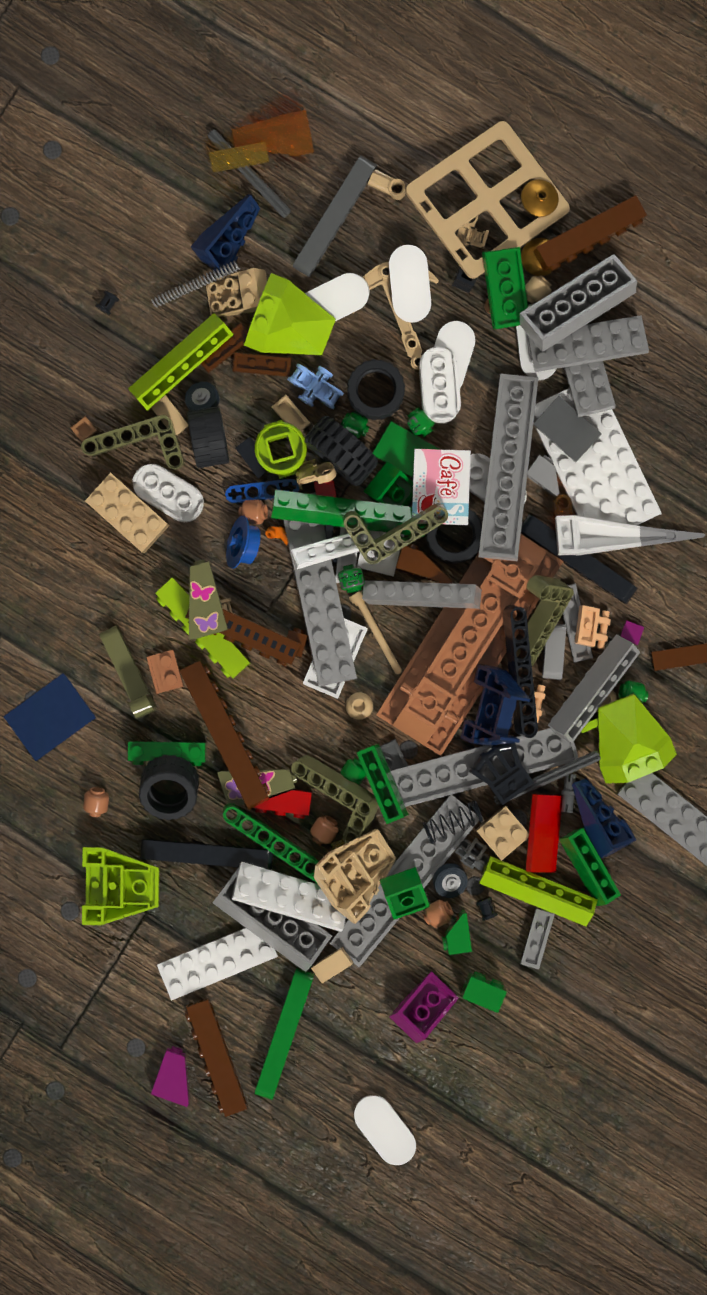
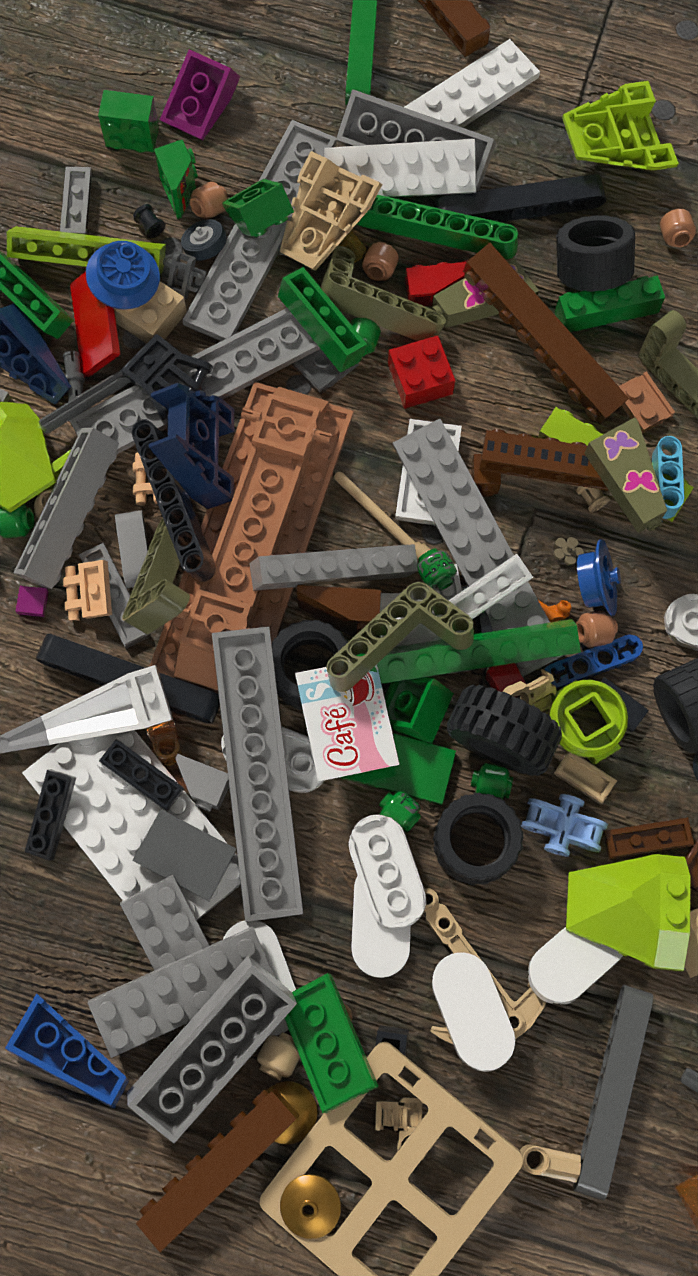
camera: 155 degrees right, 15 degrees down
(173, 591) = (672, 466): none -> medium azure beam
(254, 575) = (567, 550): none -> dark tan plant
(319, 733) = (421, 372): none -> red brick
(332, 965) = (324, 115): tan tile -> none
(359, 706) = (378, 422): tan piece -> none
(474, 805) = (193, 319): black piece -> none
(517, 854) = (122, 275): none -> blue wheel
(575, 479) = (153, 785): none -> black tile
(643, 485) = (53, 798): none -> black tile
(669, 325) = (60, 1050): none -> blue wedge

